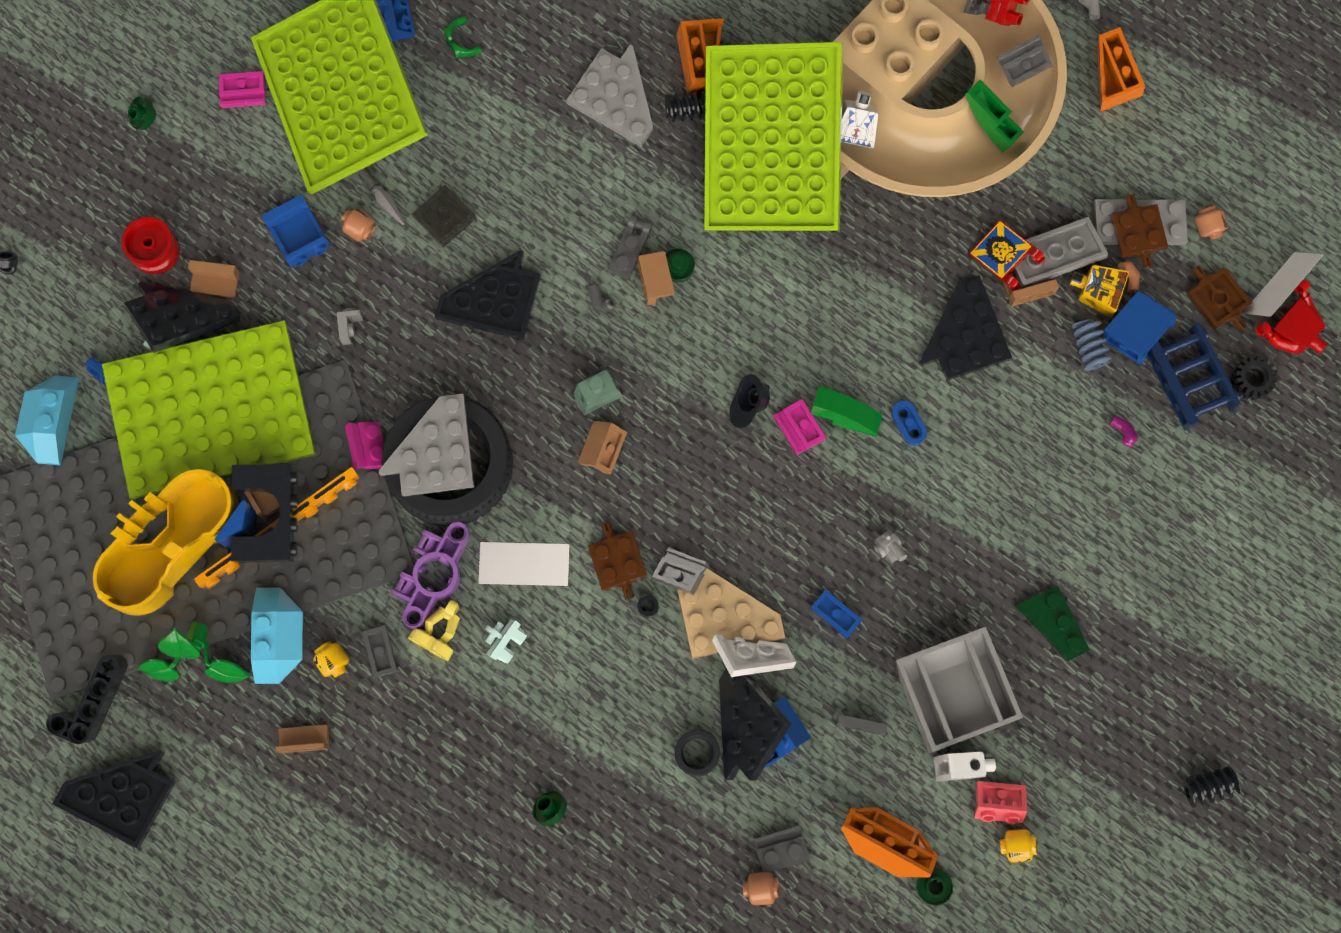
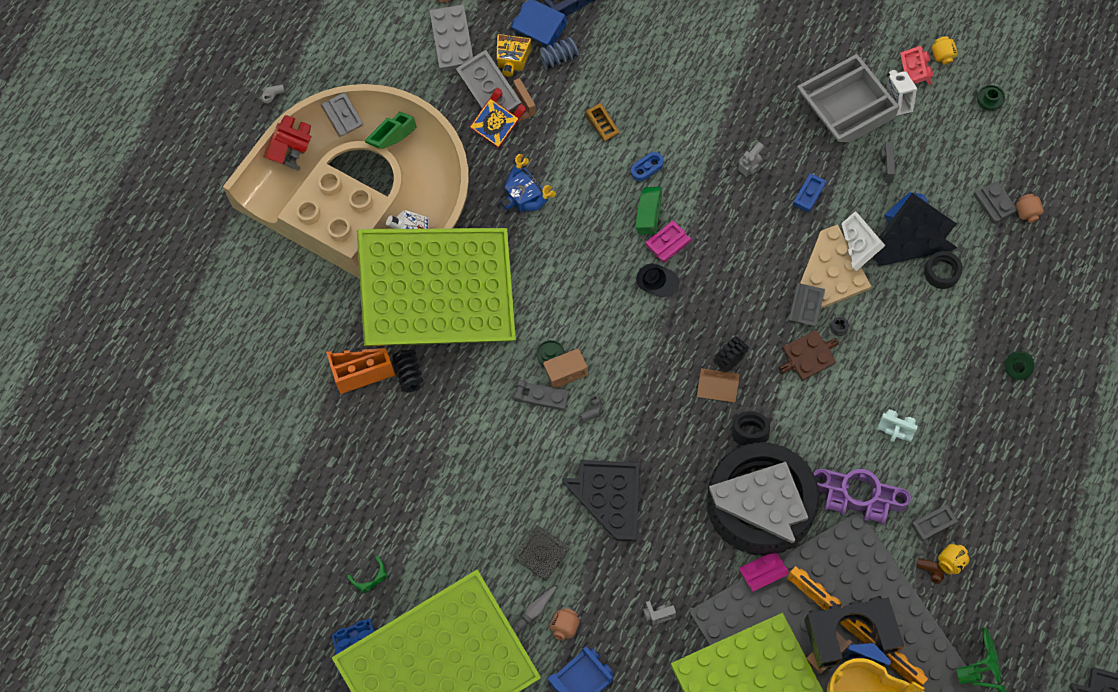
camera: 95 degrees left, 10 degrees down
(275, 635) = (945, 609): medium azure wedge -> none
(303, 739) = (1025, 568): medium nougat panel -> none
(329, 635) = (934, 569): none -> reddish brown arm
(427, 641) = (916, 478): light yellow piece -> none
(524, 563) = (829, 428): white sticker -> none
(551, 464) = (753, 419): none -> black tyre
(597, 392) = (673, 392): sand green torso -> none
(614, 95) = (404, 434): light grey wing -> none
(631, 465) = (731, 354): none -> black tyre
(889, 842) = (970, 127): orange wedge -> none
(900, 269) = (524, 190): none -> blue torso
(967, 333) = (564, 139): black wing -> none
(985, 389) = (589, 114): none -> pearl gold slope
(1055, 621) = (774, 52): dark green wing -> none
(1117, 71) = (331, 64): orange wedge -> none
(1127, 428) = (624, 21): magenta arm -> none
(1133, 277) = (493, 37): nougat arm -> none
(1139, 231) = (463, 32): reddish brown plate -> none

